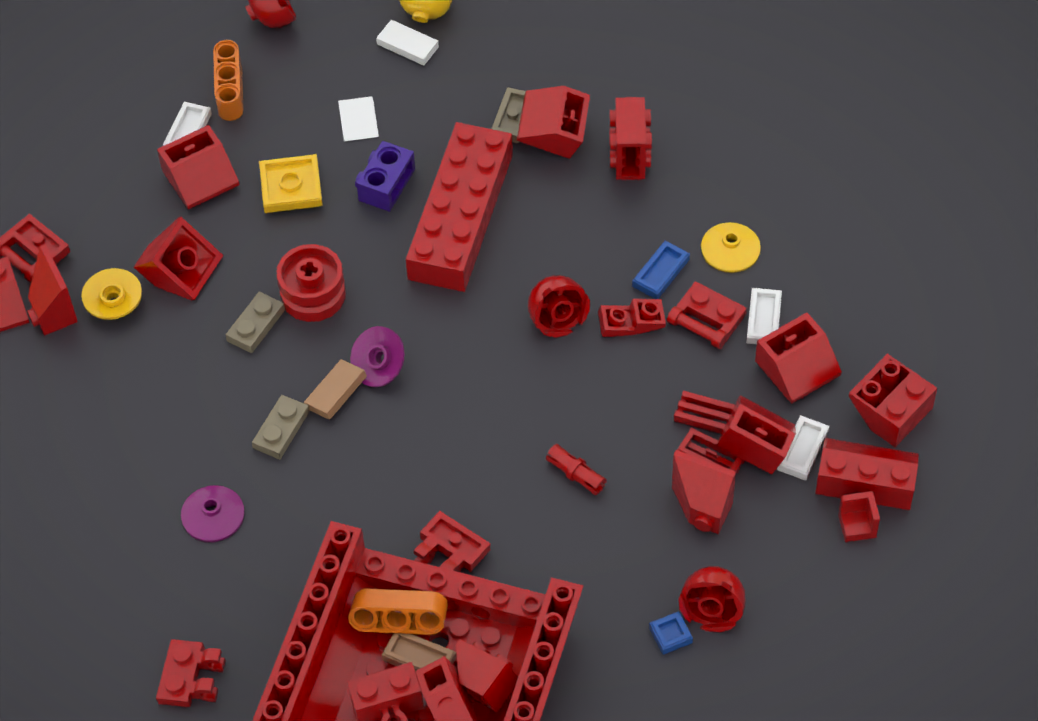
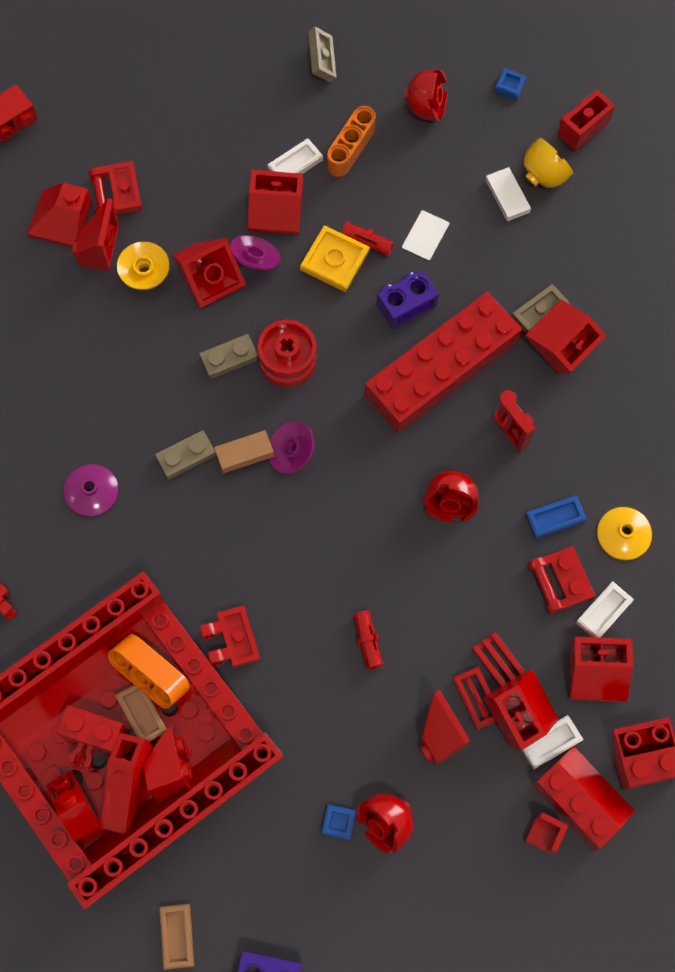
camera: 30 degrees right, 15 degrees up
(139, 23) = (322, 54): none -> dark tan plate
(213, 221) = (255, 252): none -> magenta dish
(327, 146) = (383, 245): none -> red pin
(572, 211) = (513, 422): none -> red plate
(630, 138) = (611, 392): red brick -> none
(637, 318) = (503, 543): red slope -> none

